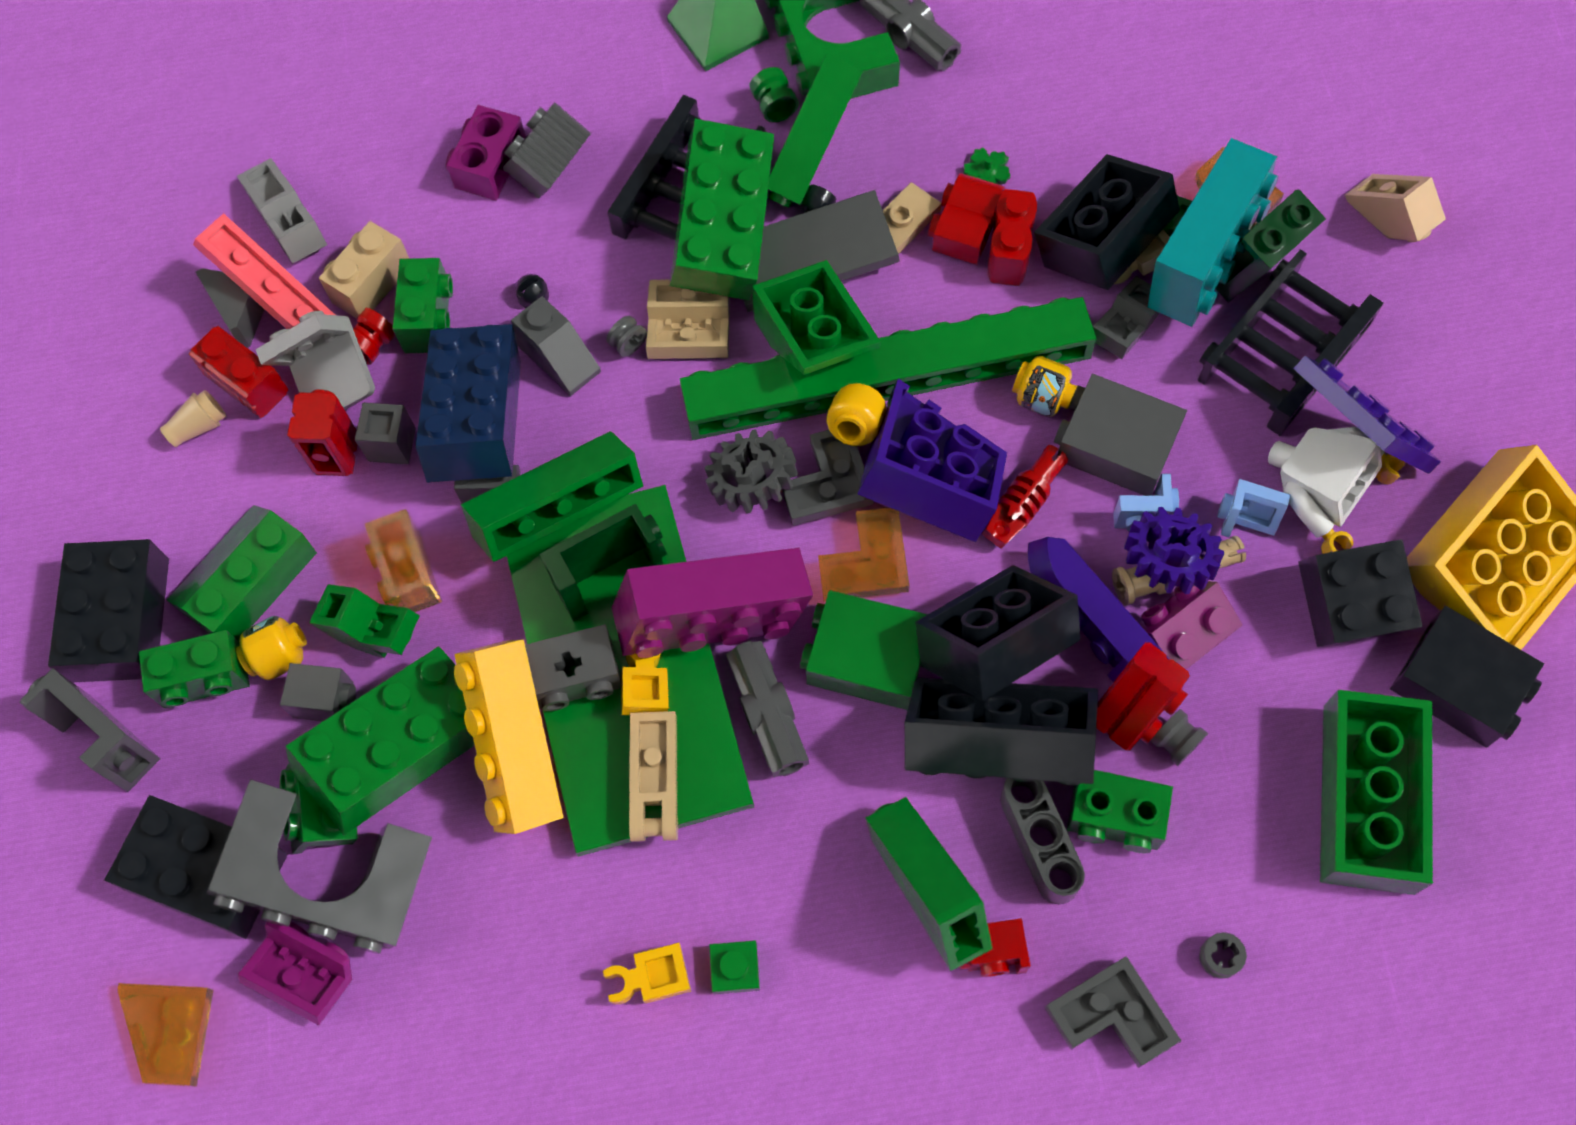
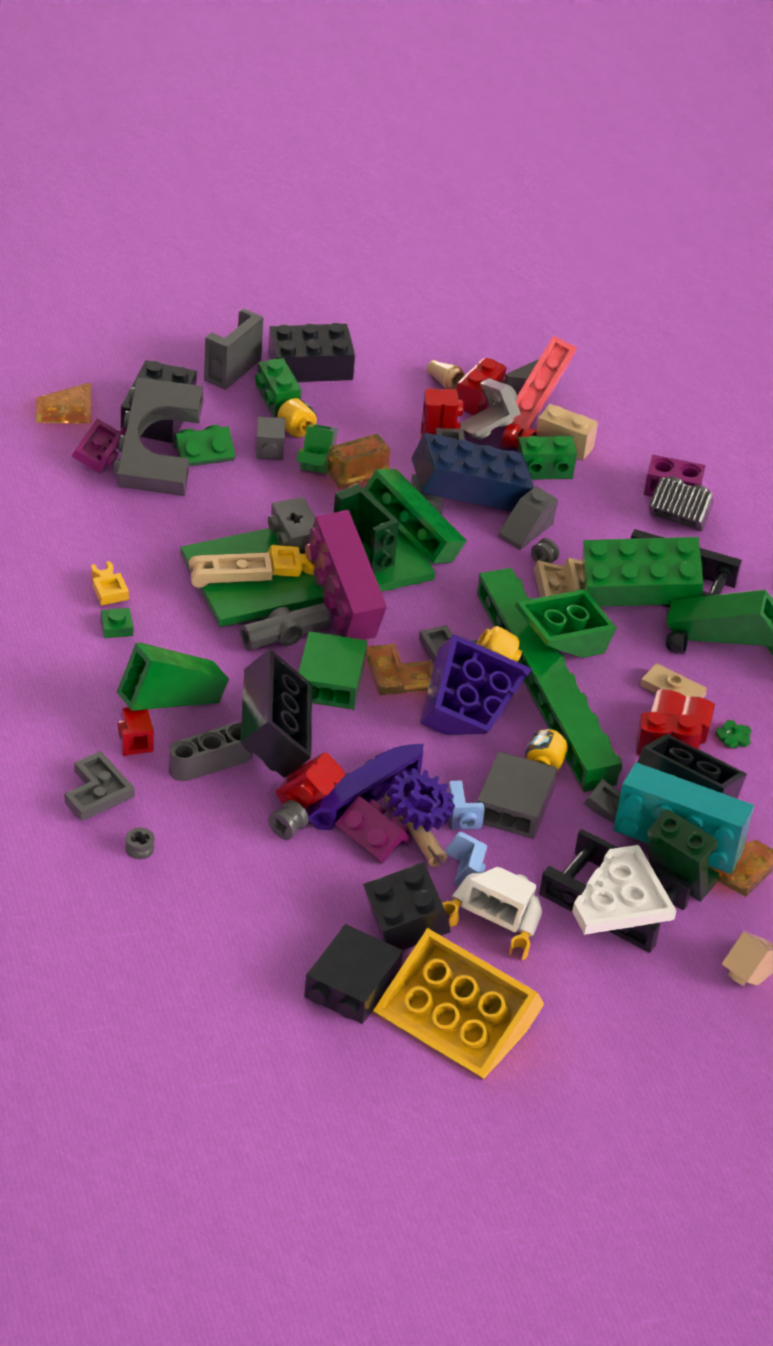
camera: 75 degrees right, 25 degrees down
(243, 573) = (344, 404): green slope -> none
(282, 210) = (605, 395): light grey slope -> none
(383, 742) = (241, 459): green brick -> none
(507, 736) = (246, 497): yellow brick -> none
(535, 288) = (573, 511): black hinge -> none
(751, 471) = (451, 609): dark grey gear -> none
(845, 233) = (642, 643): dark grey tile -> none
(998, 631) = (344, 709): black brick -> none
(1024, 497) = (455, 745): red hinge -> none
(1121, 811) = (233, 788): green brick -> none
(1343, 321) = (622, 894): none -> white plate
(1369, 415) = (542, 906): dark purple plate -> none
(1377, 793) = (258, 910): green brick -> none

